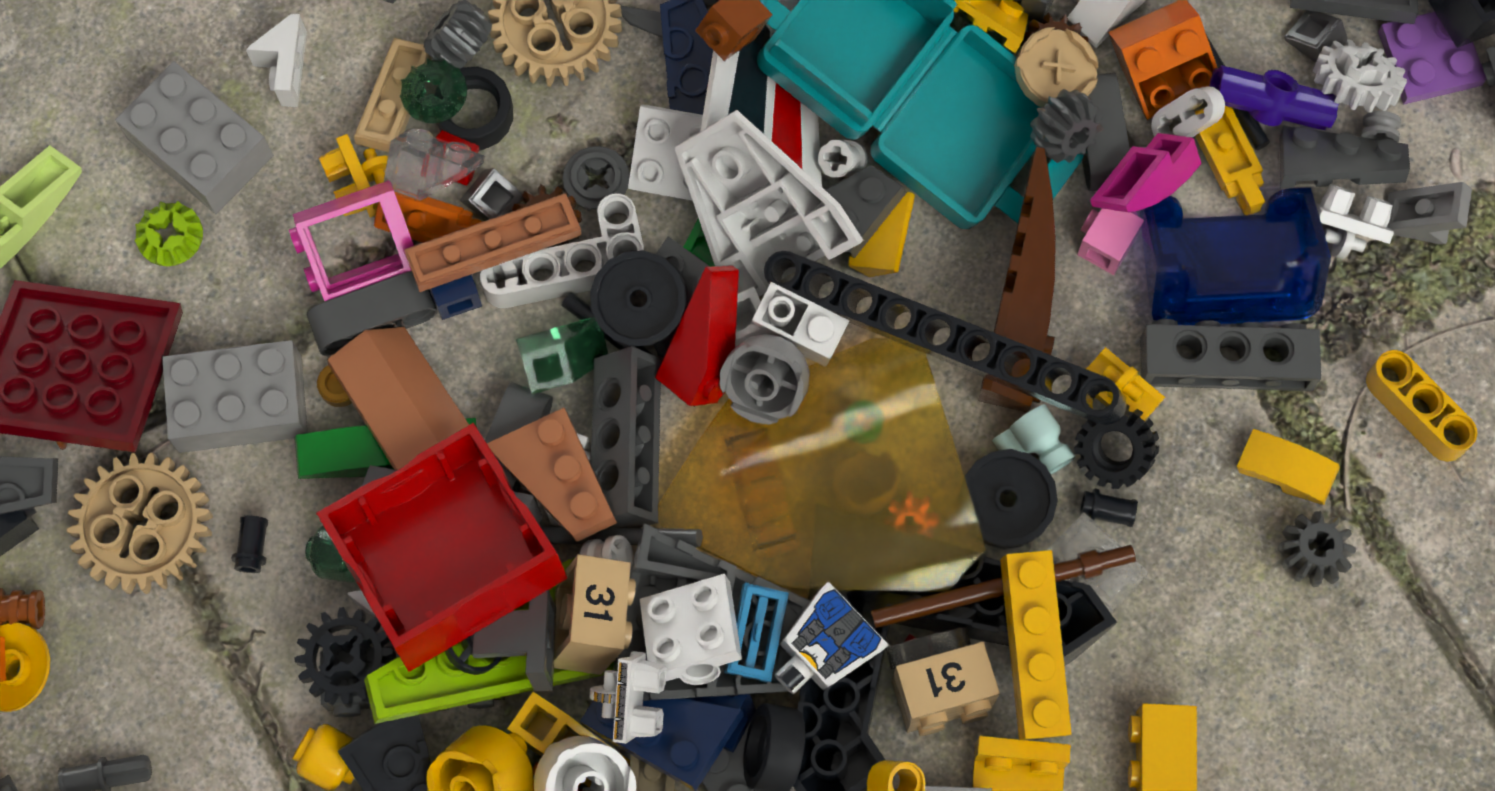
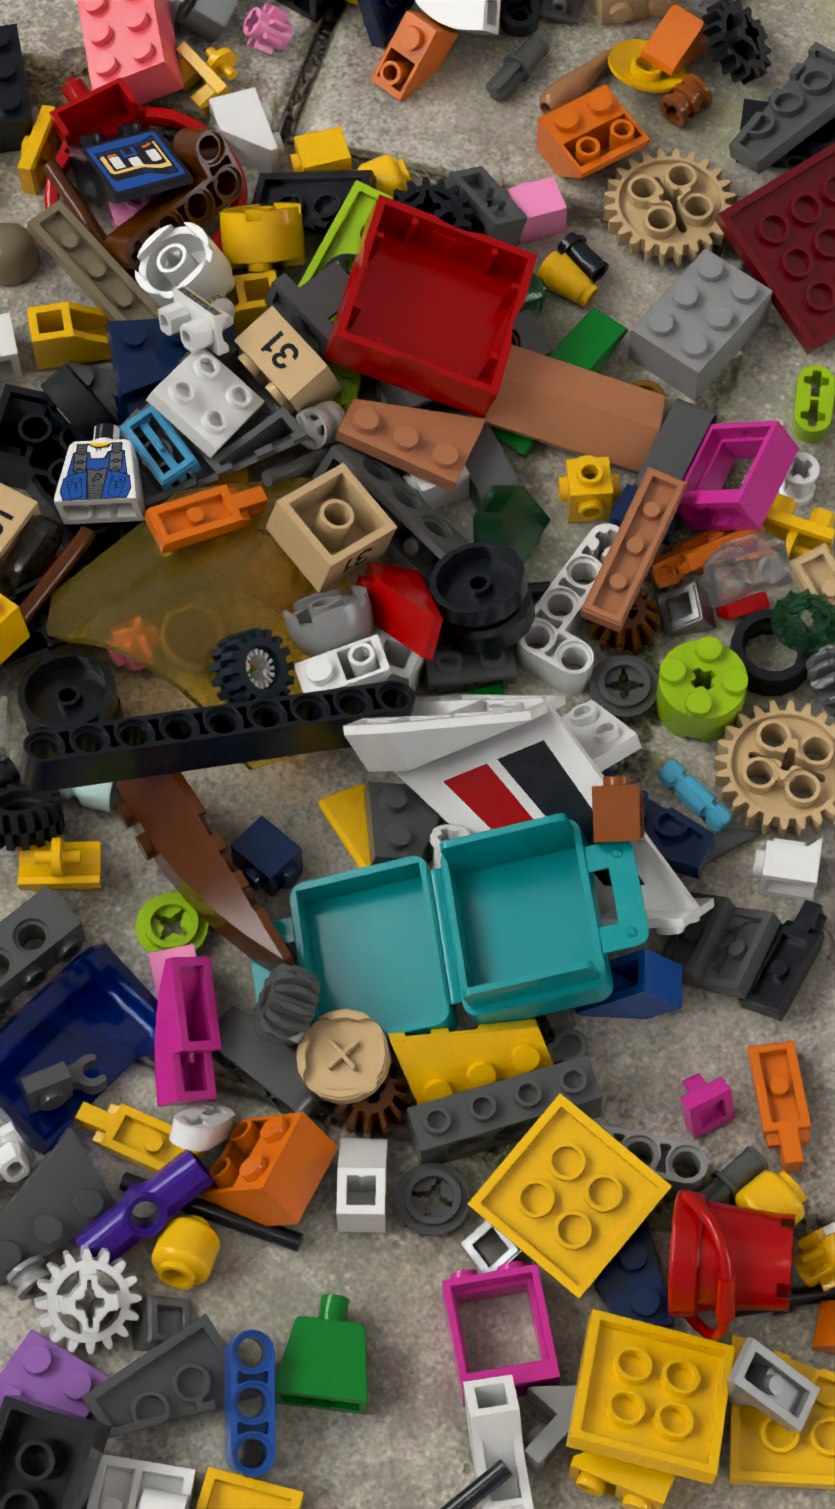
camera: 135 degrees right, 10 degrees down
(86, 712) = (573, 83): none -> medium nougat piece
(131, 634) = (588, 134): none -> orange slope
(226, 267) = (805, 402): none -> lime beam
(241, 618) = (543, 207): none -> bright pink brick
(276, 645) = (493, 209): none -> dark grey brick
(284, 535) = (566, 279): none -> yellow cone
(304, 199) = (801, 479): none -> white bush
(463, 351) = (588, 488): none -> yellow brick
(548, 97) = (701, 689): none -> lime brick
(631, 62) = (695, 795): none -> medium azure axle
(695, 445) = (330, 527): none -> tan brick
(784, 532) = (203, 515): none -> orange hinge
(868, 372) = (267, 657): none -> black bush
(967, 270) = (267, 857): none -> dark blue brick
(1087, 271) = (169, 908): none -> lime gear
(1260, 233) = (55, 1084): none -> dark grey plate
(1267, 51) = (185, 1252): none -> yellow head

